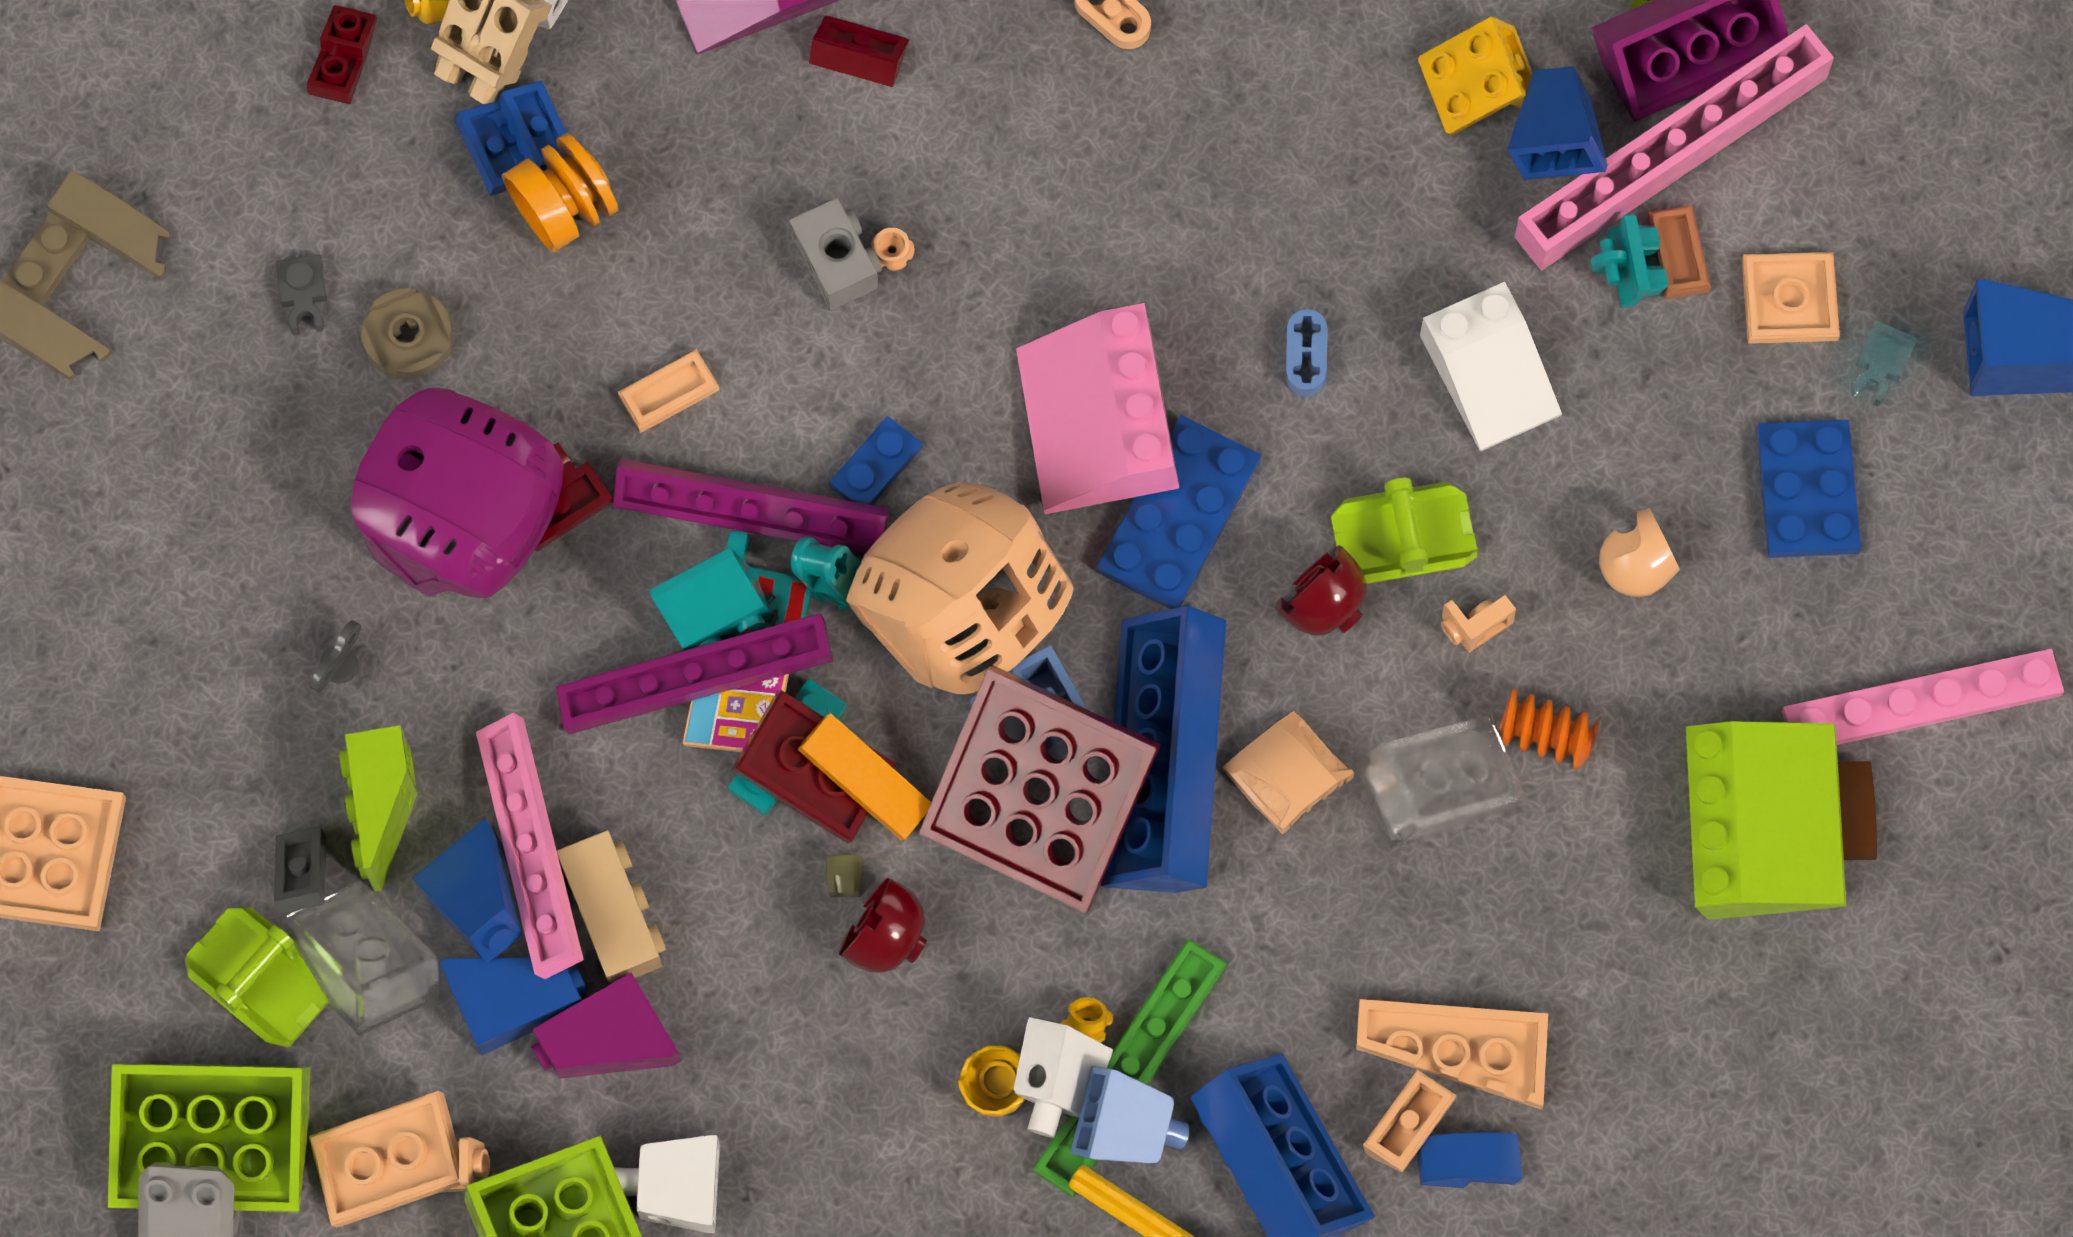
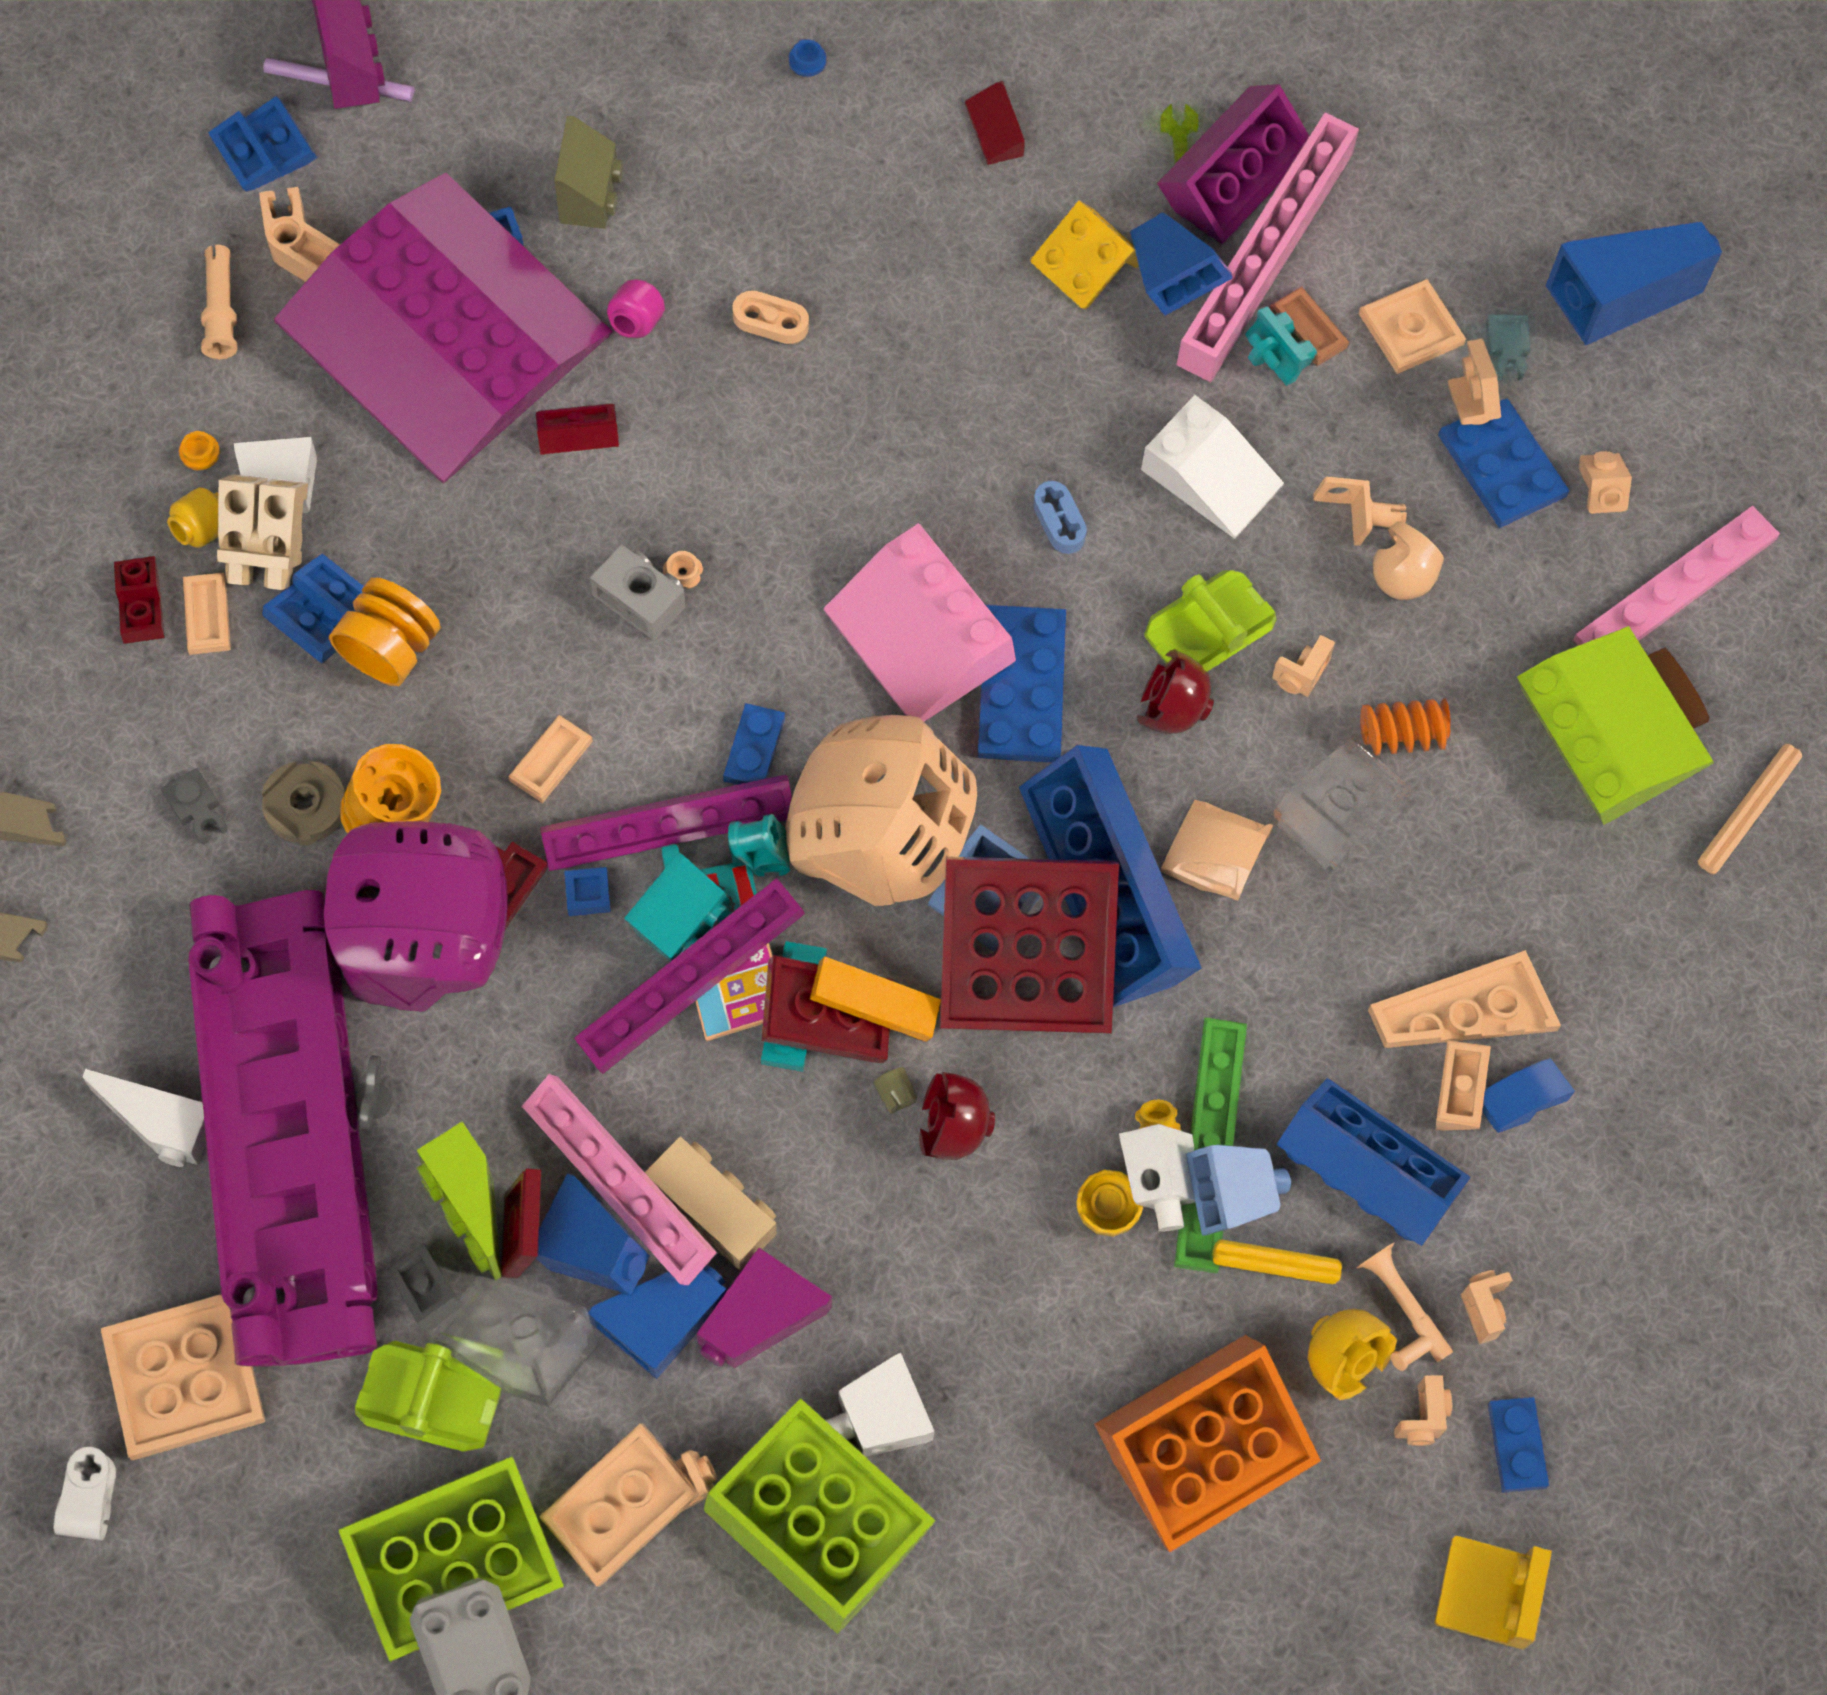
camera: 30 degrees left, 5 degrees down
(133, 600) = (161, 1119): none -> white slope
(235, 655) = (282, 1131): none -> magenta panel
(401, 96) = (206, 613): none -> light nougat tile
(416, 848) = (521, 1223): none -> dark red tile
(499, 348) = (389, 787): none -> light orange wheel
(639, 544) = (587, 891): none -> blue plate
(1629, 482) = (1364, 511): none -> light nougat bracket
(1813, 396) = (1476, 393): none -> light nougat bracket
(1869, 969) = (1749, 809): none -> light nougat axle
(1905, 556) = (1607, 482): none -> light nougat bracket

